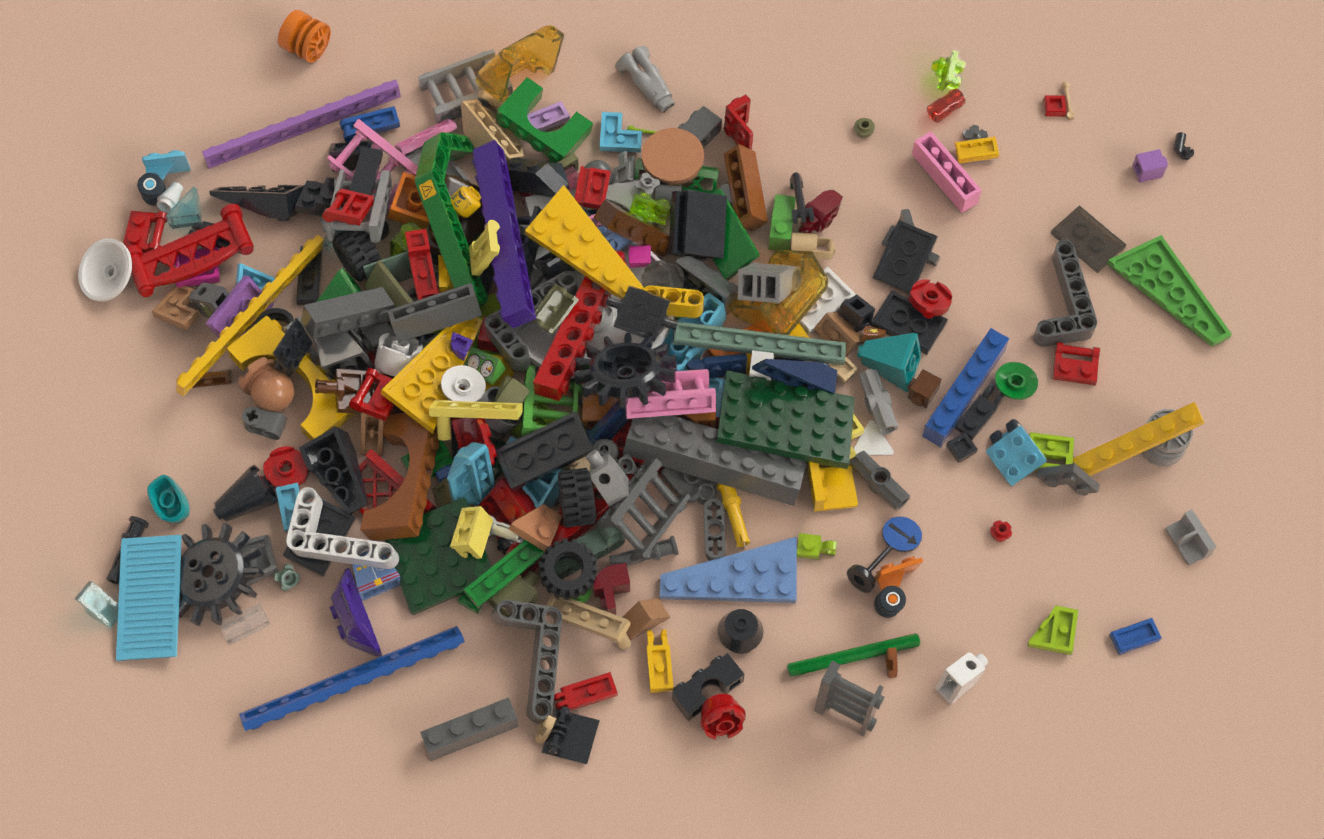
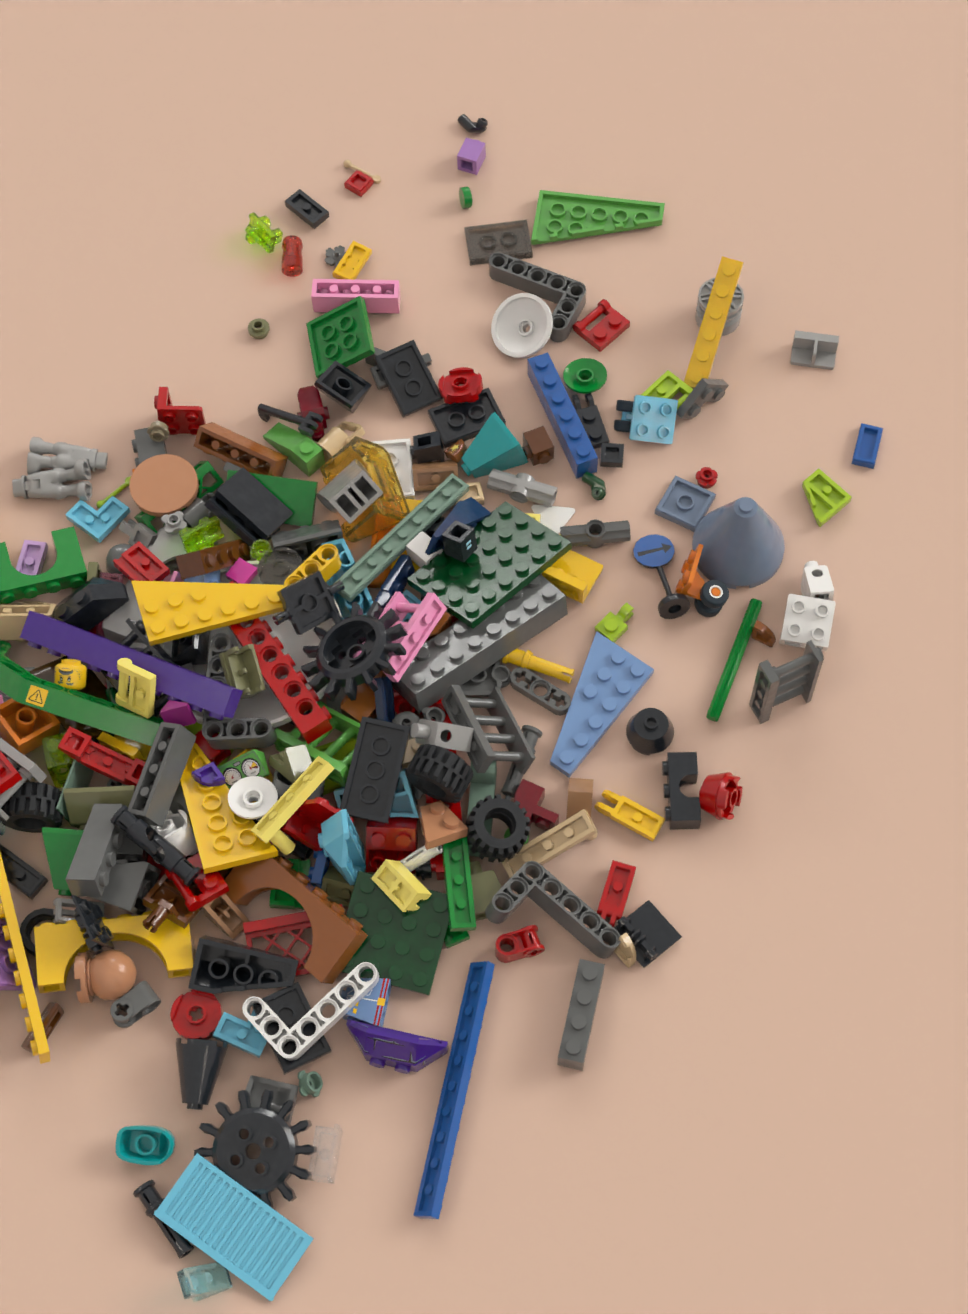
camera: 50 degrees left, 0 degrees up
(376, 349) = (152, 843): none -> black piece
(486, 289) = (178, 713): none -> magenta slope
(497, 652) = (524, 944): none -> red piece
(619, 84) = (50, 483): none -> light grey piece
(669, 251) = (260, 545): none -> clear neon green plate
(712, 121) = (158, 431): none -> dark tan plate
(780, 383) = (459, 541): none -> black brick
(857, 216) = (343, 386): none -> black slope
(898, 186) = (340, 336): none -> green plate
(923, 686) = (807, 620): none -> white bracket
(926, 455) = (597, 485): none -> dark green arm
(958, 594) = (739, 544): none -> sand blue cone
(964, 530) = (685, 503): none -> sand blue tile
(998, 86) = (307, 208): none -> black plate
(1020, 304) = (514, 317): none -> white dish
(1107, 187) = (465, 197): none -> green tile

